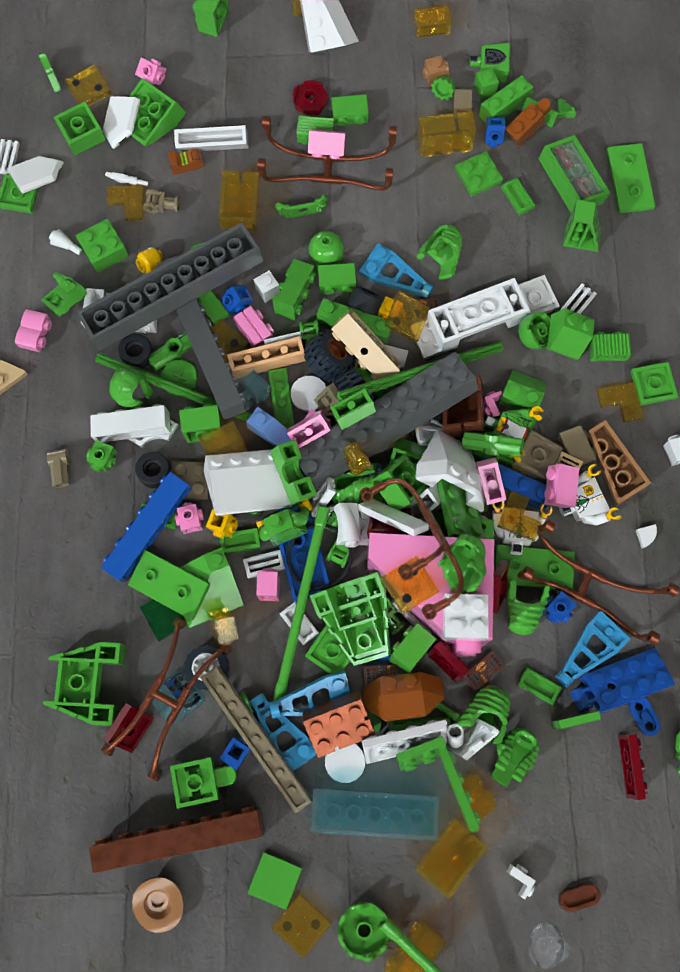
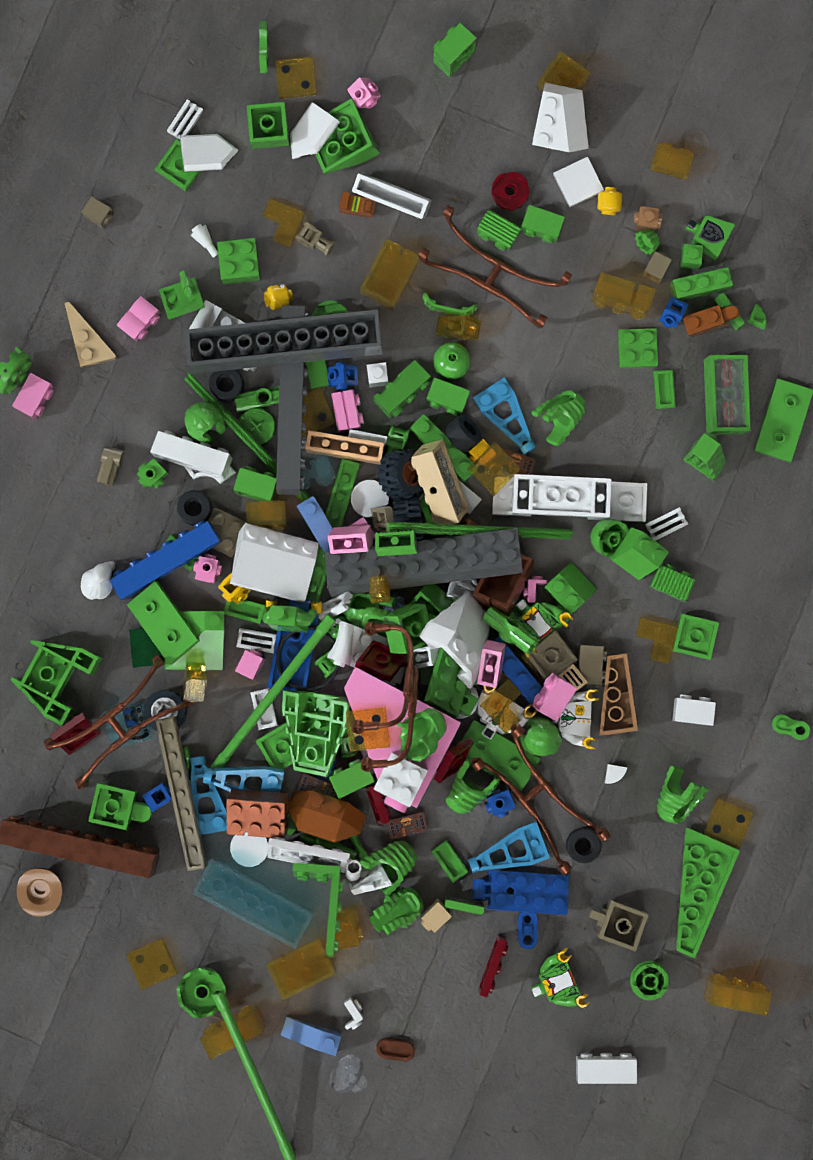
camera: 25 degrees right, 10 degrees up
(90, 576) = (96, 582): none -> white hair
(122, 178) = (291, 198): white hand -> none
(274, 880) = (145, 917): bright green tile -> none
(286, 459) = (315, 563): bright green arch -> none
(319, 219) = (458, 327): none -> clear yellow slope
(326, 143) = (501, 253): bright pink brick -> none
(363, 68) = (578, 182): none -> white tile
(393, 517) = (385, 659): white tile -> none
(397, 70) = (609, 201): none -> yellow head
(492, 922) = (311, 1035): none -> medium blue slope
(554, 743) = (435, 916): none -> tan brick
(569, 529) = (541, 738): none -> bright green hair
(663, 604) = (595, 848): none -> black tyre

